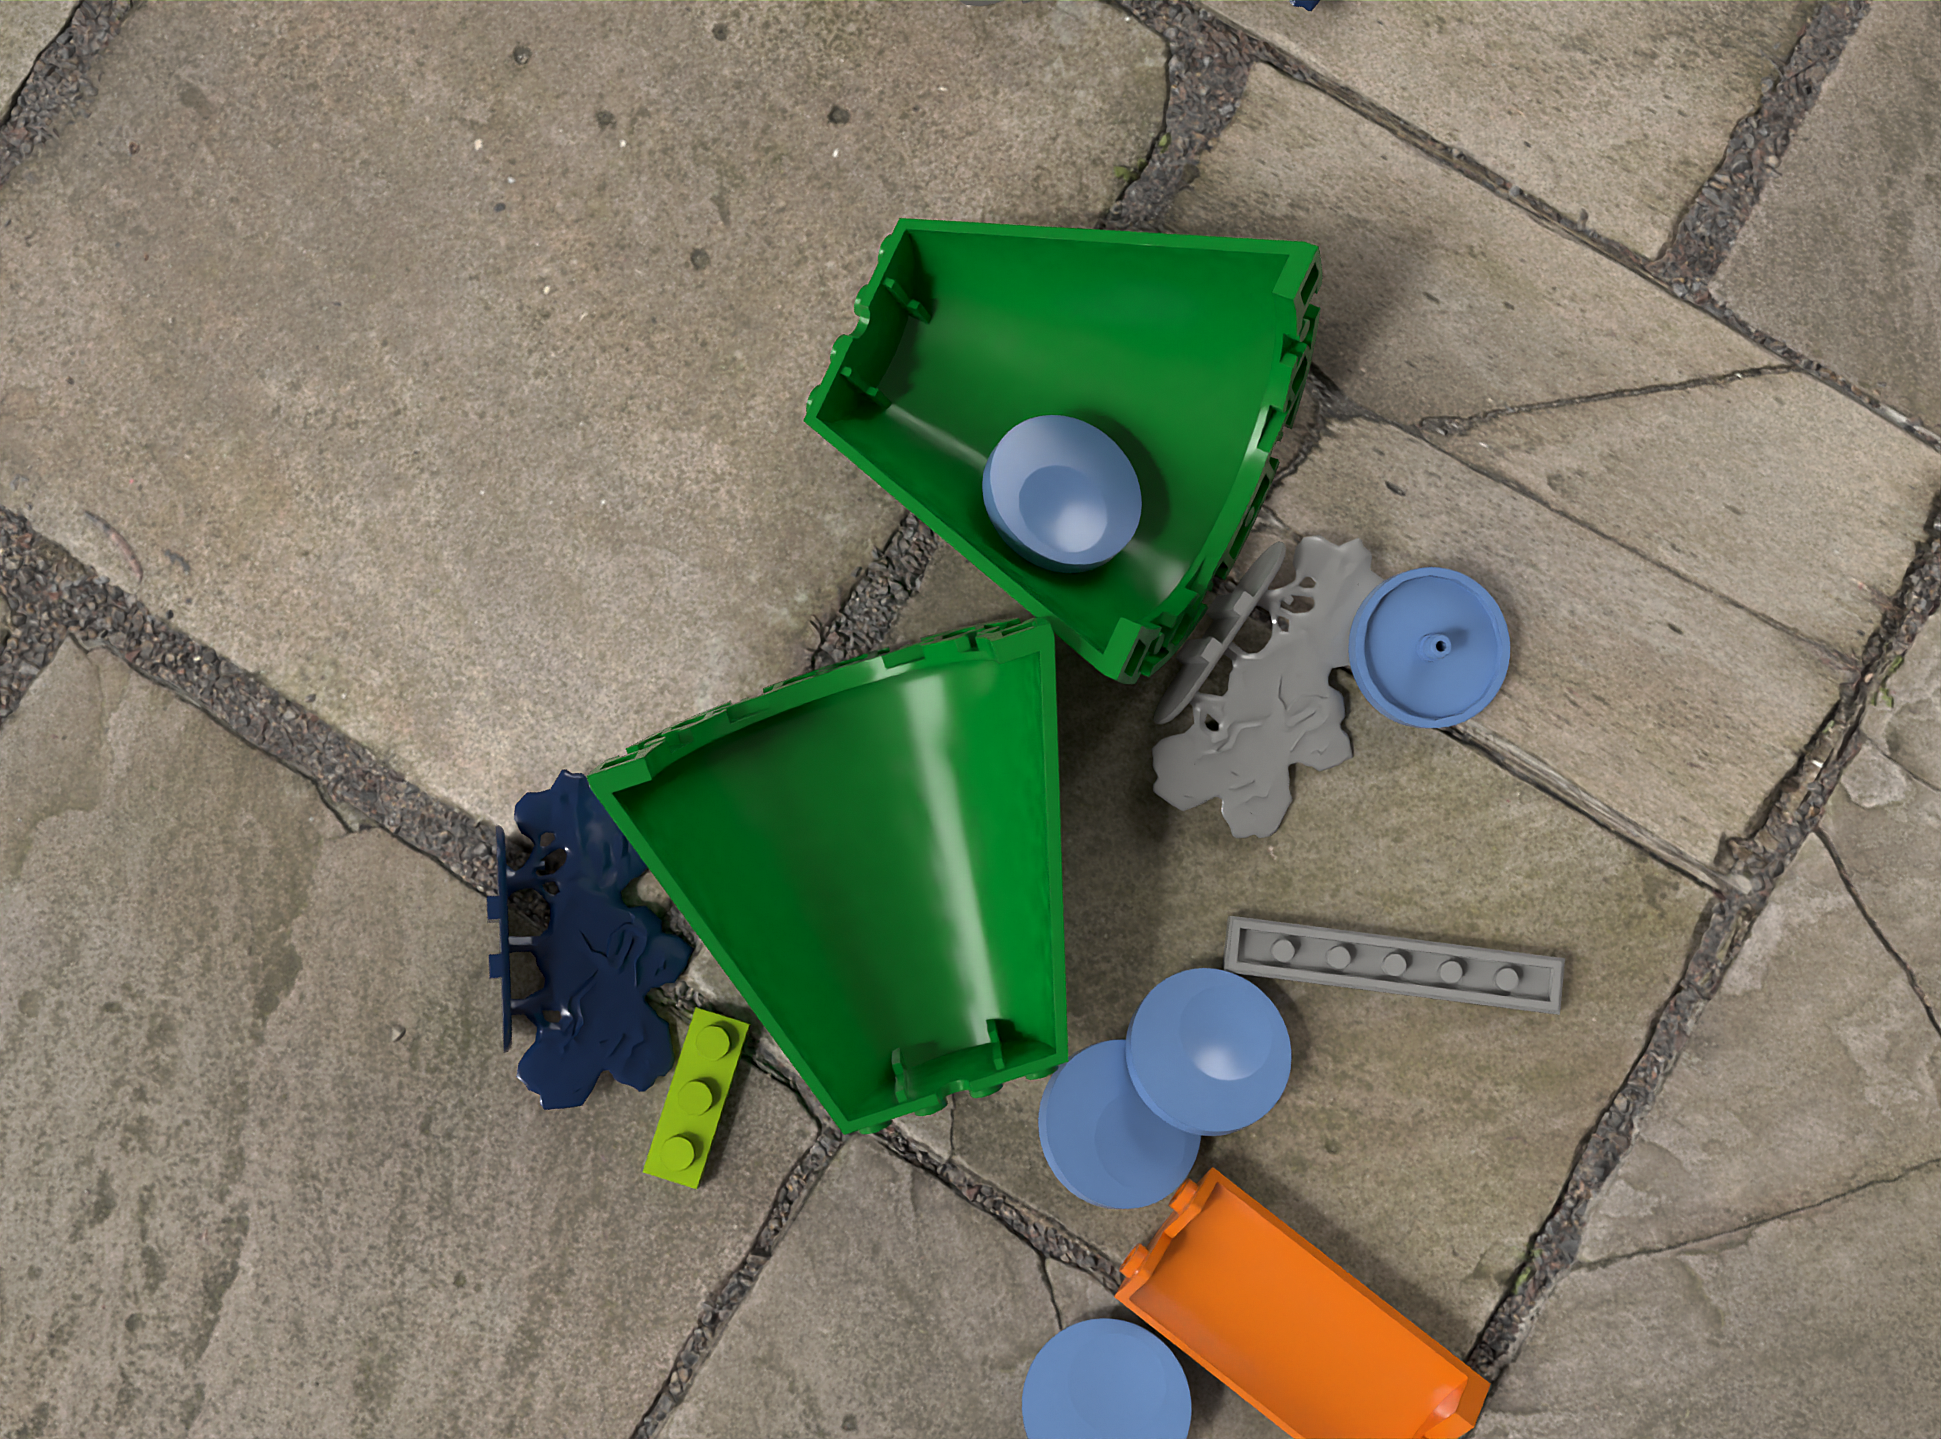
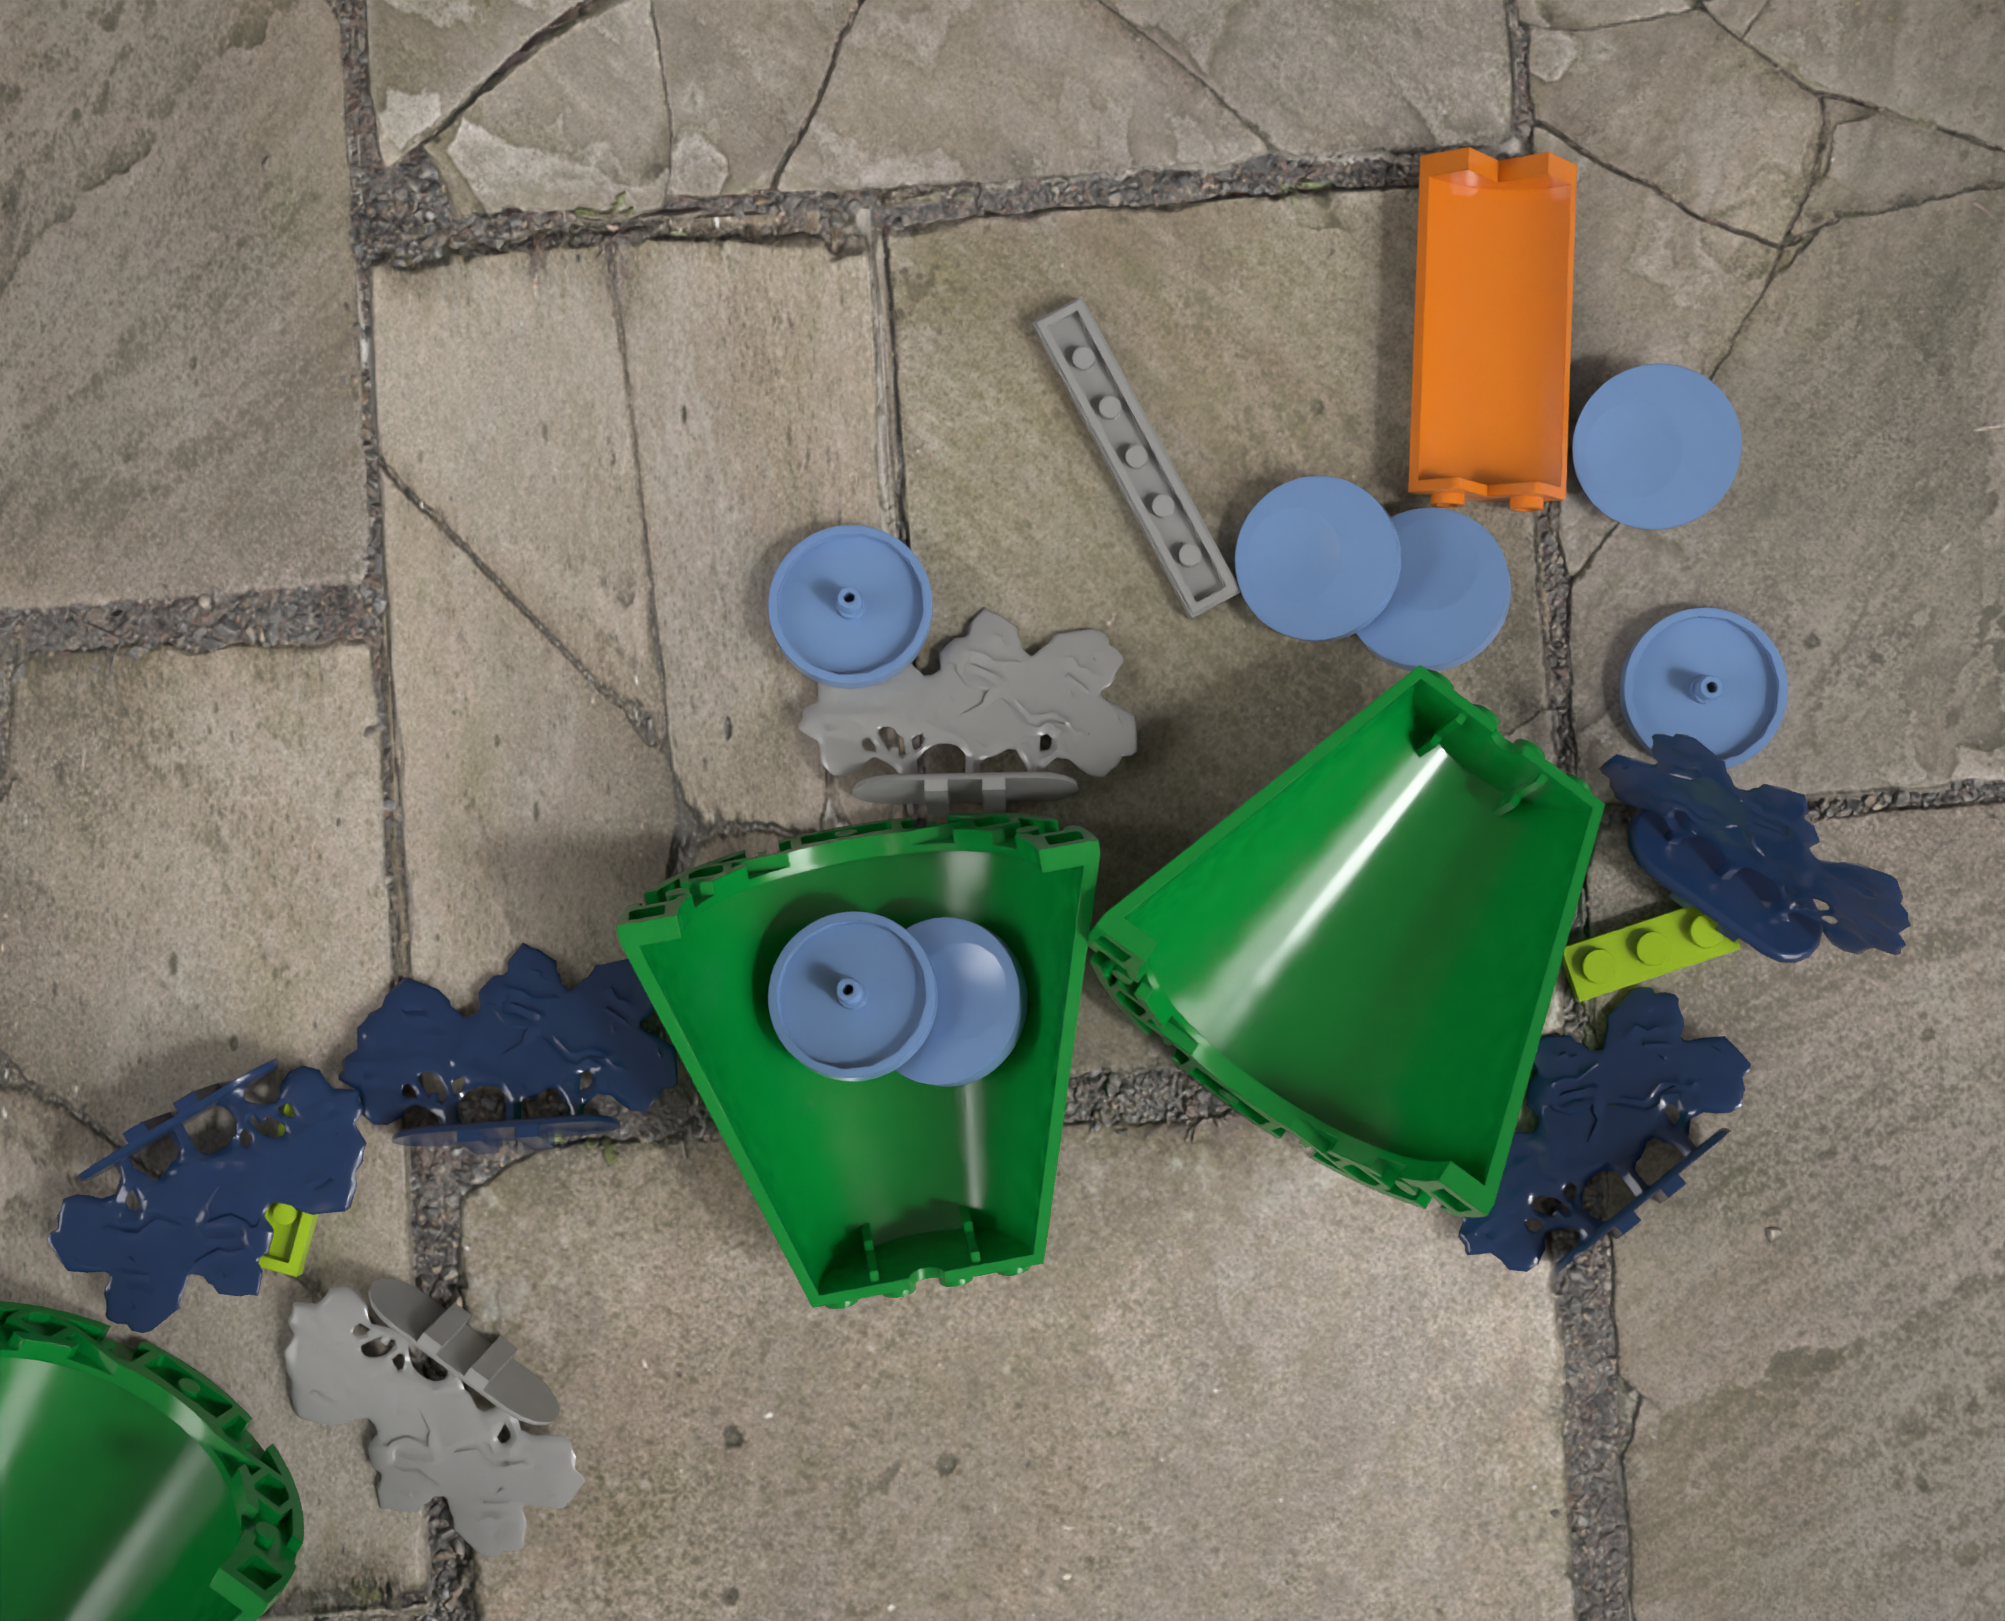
camera: 120 degrees left, 5 degrees up
(712, 1222) = (1748, 857): none -> dark blue plant
(874, 1300) = (1705, 679): none -> medium blue piece
(1119, 423) = (853, 996): none -> medium blue piece
(1261, 160) = (522, 1041): none -> dark blue plant

